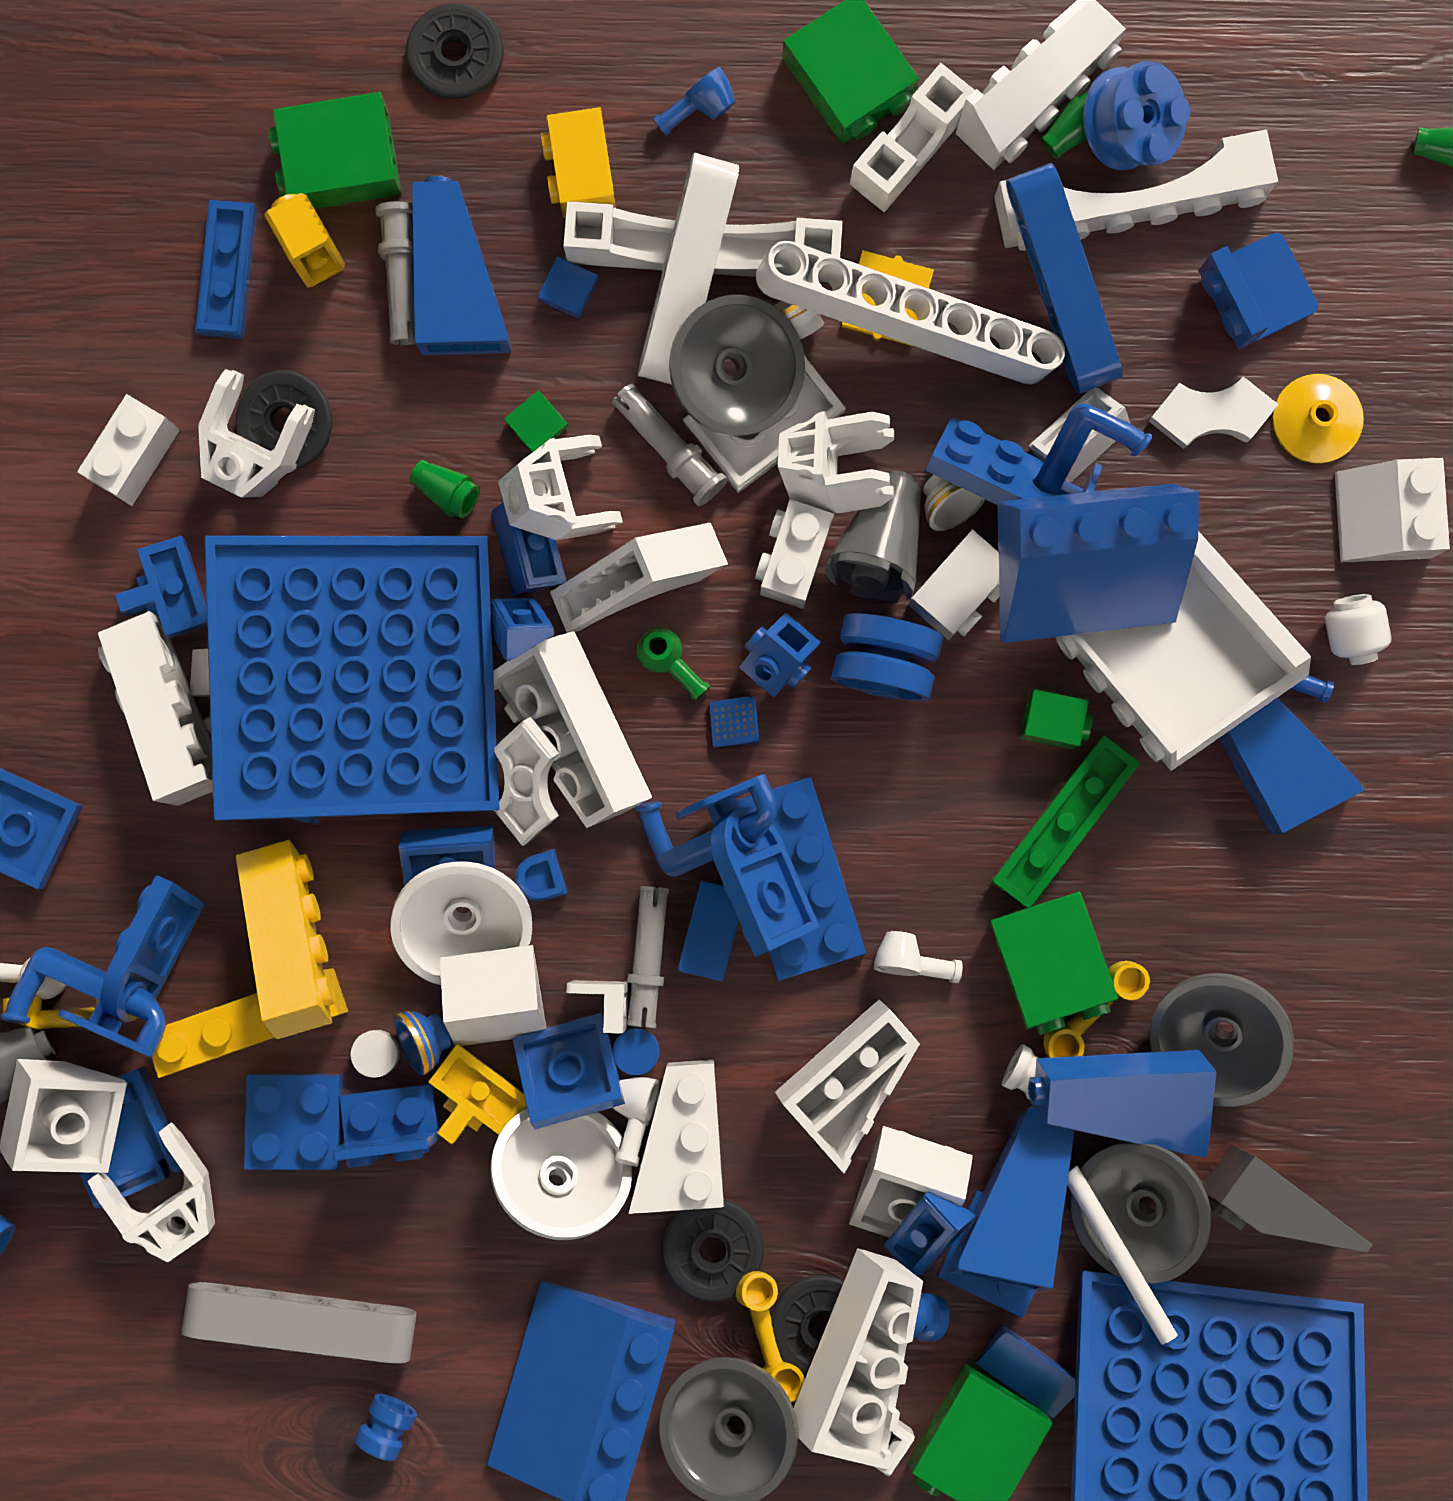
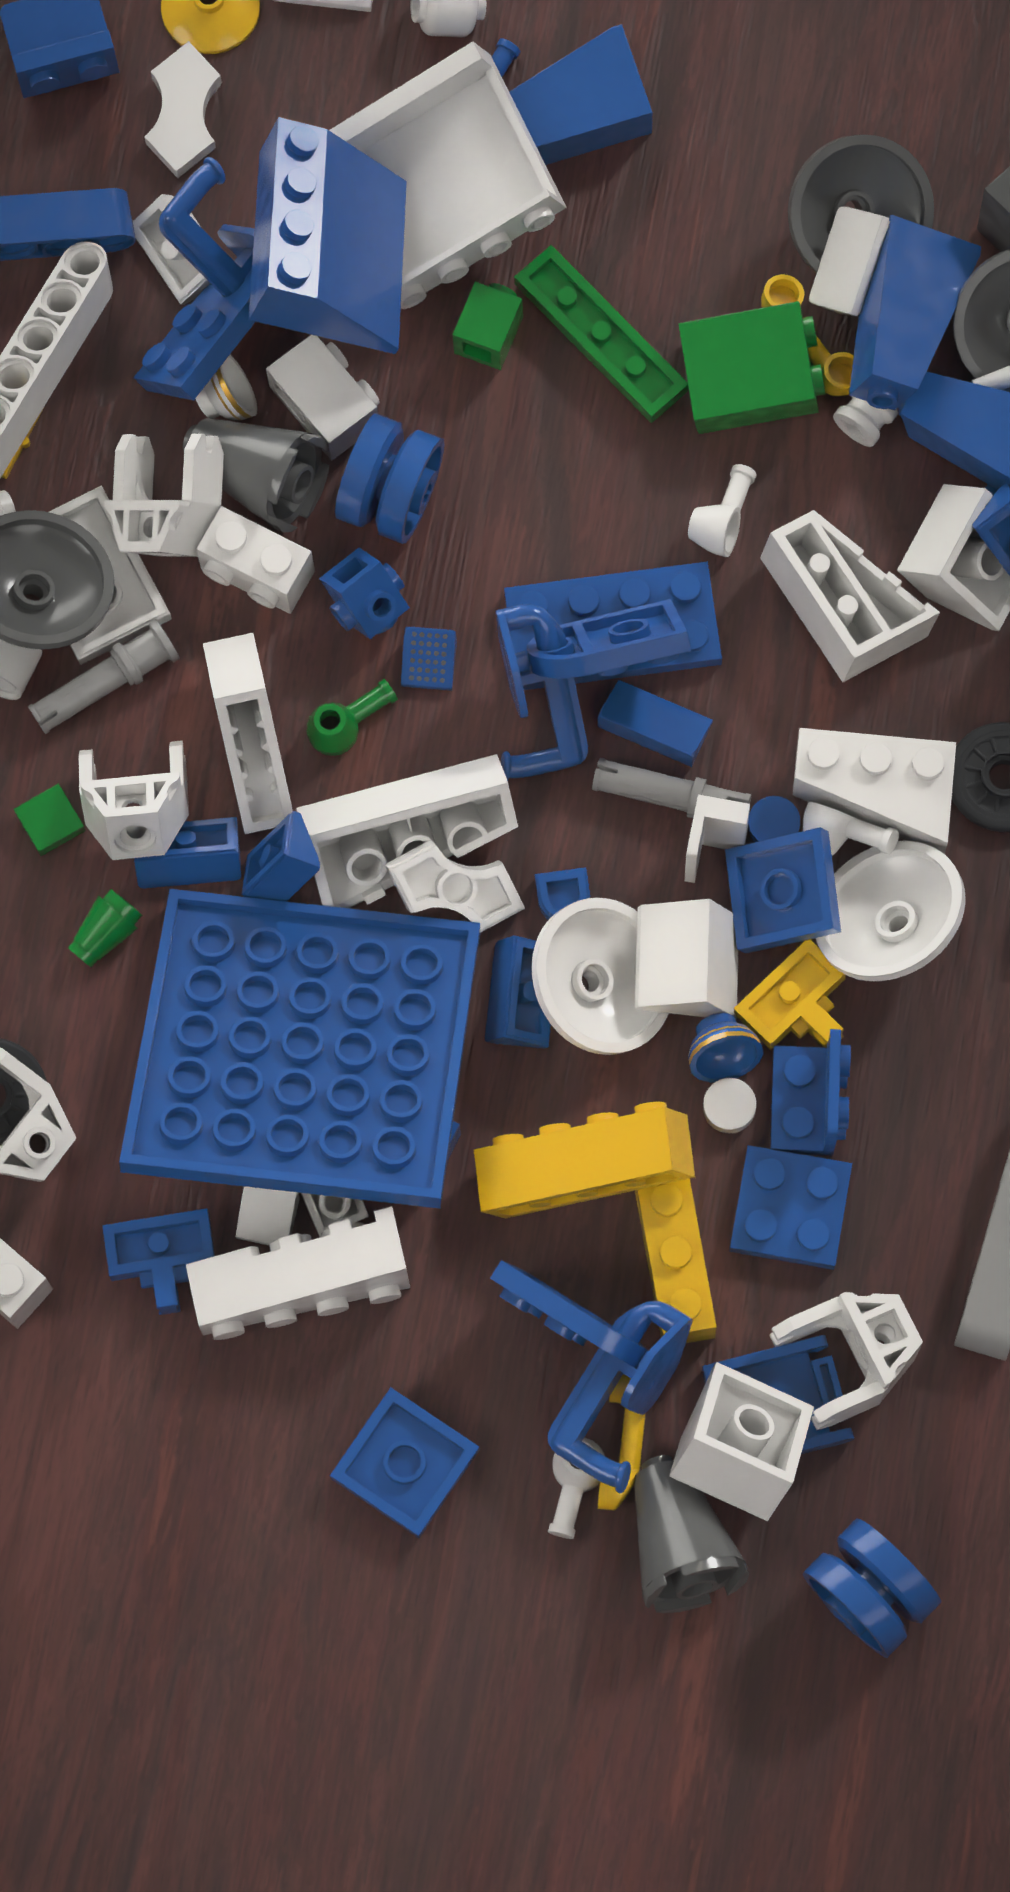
camera: 75 degrees left, 10 degrees down
(1169, 1037) = (849, 261): none -> white slope

